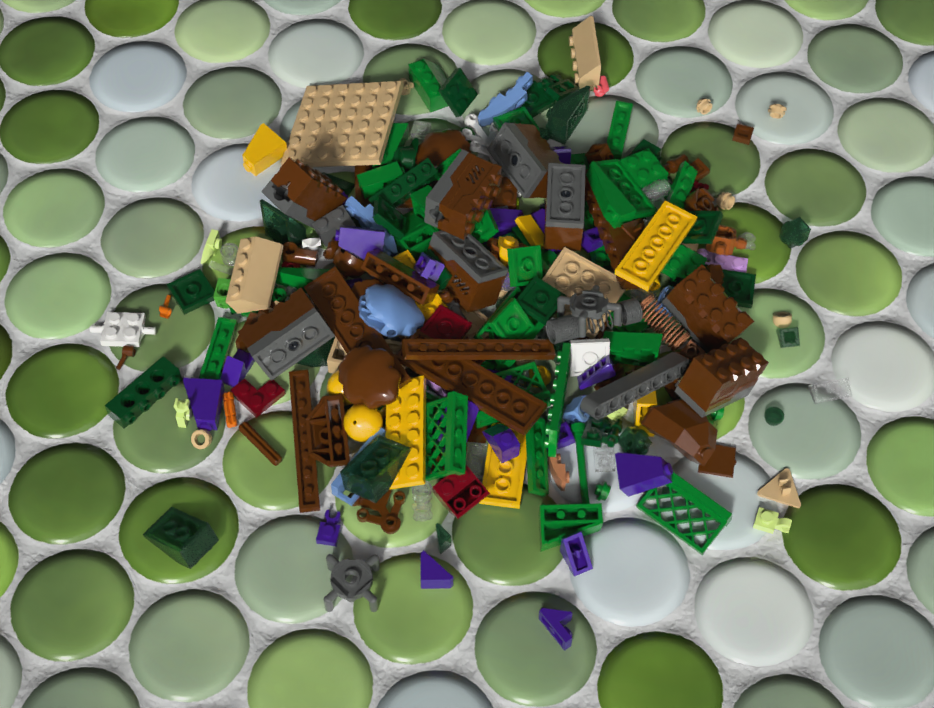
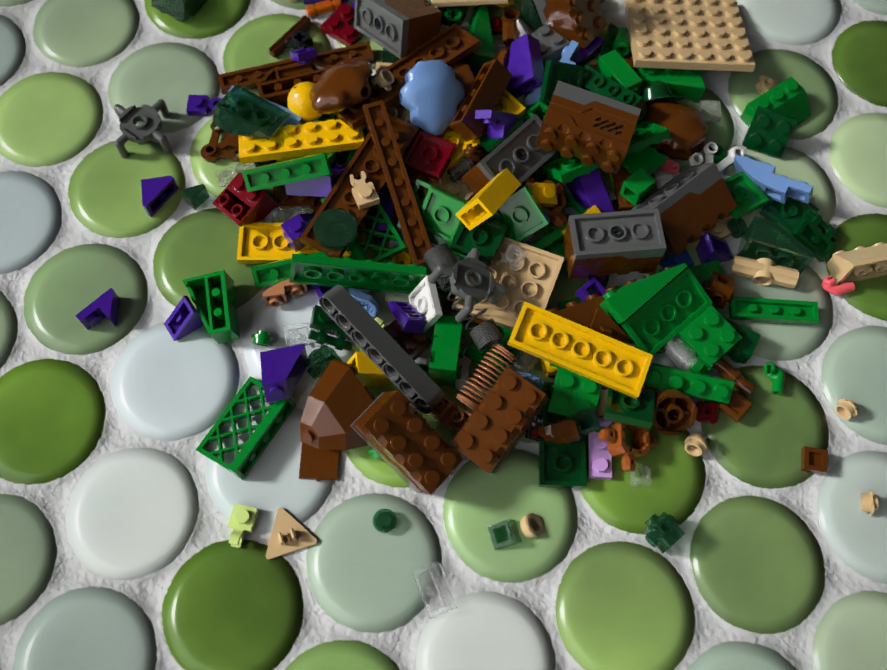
camera: 80 degrees right, 10 degrees up
(275, 431) = (300, 39): none -> black gear
(303, 422) = (303, 55): none -> dark purple plate
(339, 173) = (622, 42): none -> green cone
(363, 341) = (384, 78): none -> tan plate
(485, 376) = (363, 192): none -> tan plate
(508, 185) = (638, 187): none -> green brick
(518, 277) = (488, 199): none -> yellow slope
(521, 401) = (335, 229): none -> clear green tile
(562, 275) = (520, 254): none -> clear plate
(577, 430) = (246, 326): green piece -> none
(584, 127) = (764, 271): none -> tan piece
(673, 141) = (776, 376): none -> green arm
(708, 257) = (586, 421): none -> clear green slope

